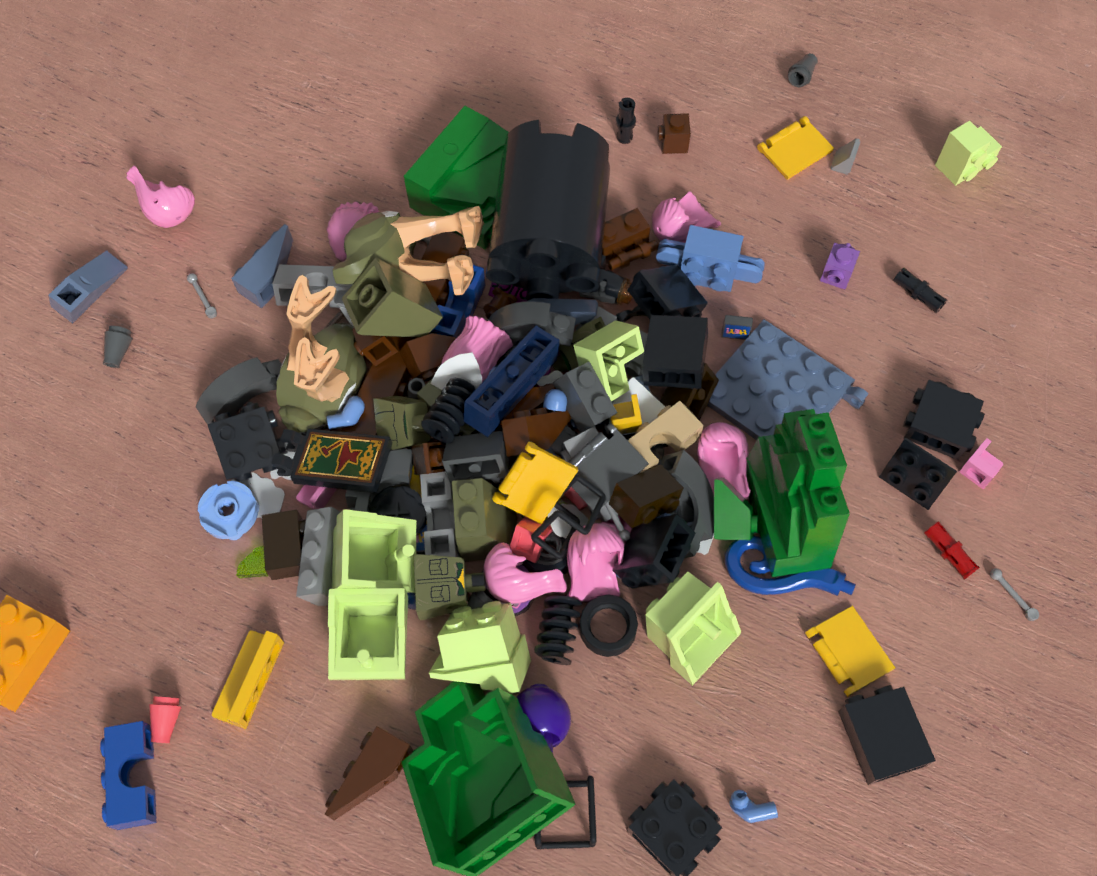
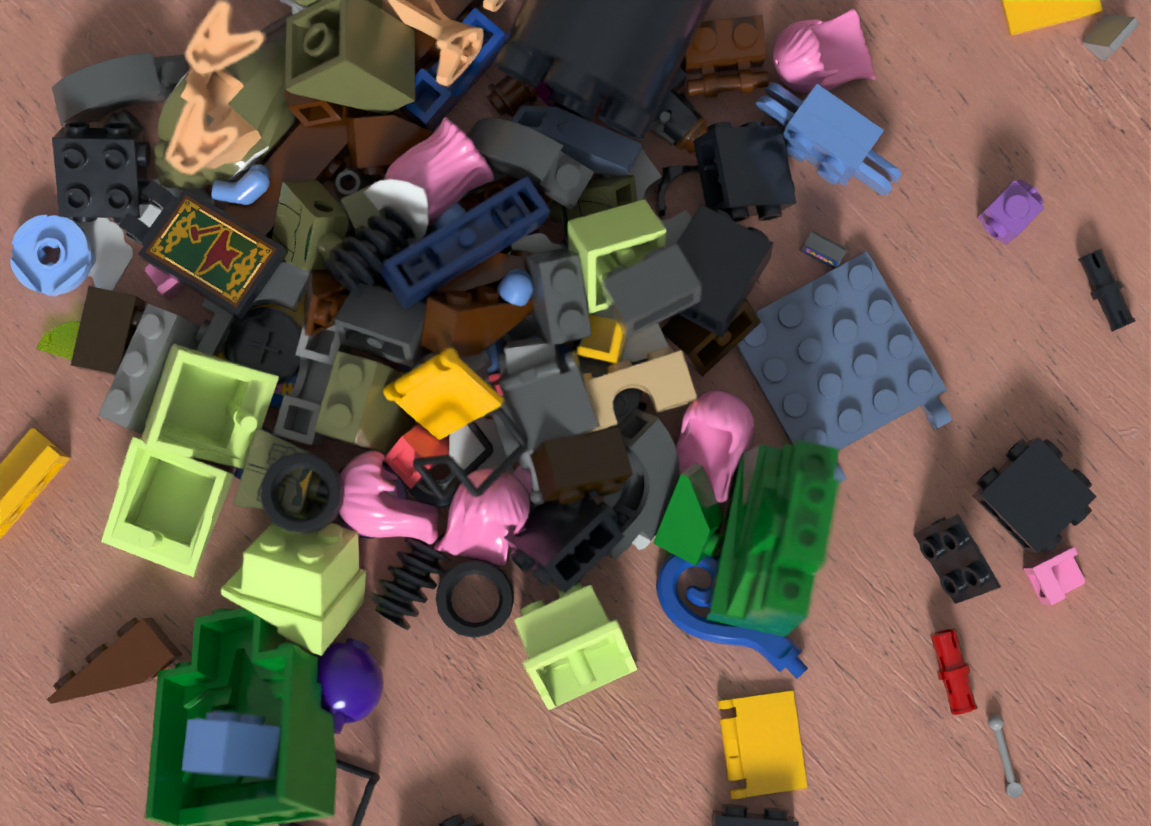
camera: 20 degrees right, 20 degrees up
(456, 558) = (270, 488): none -> black tyre
(476, 786) = (231, 746): none -> medium blue brick
(645, 365) = (651, 289): none -> dark grey piece

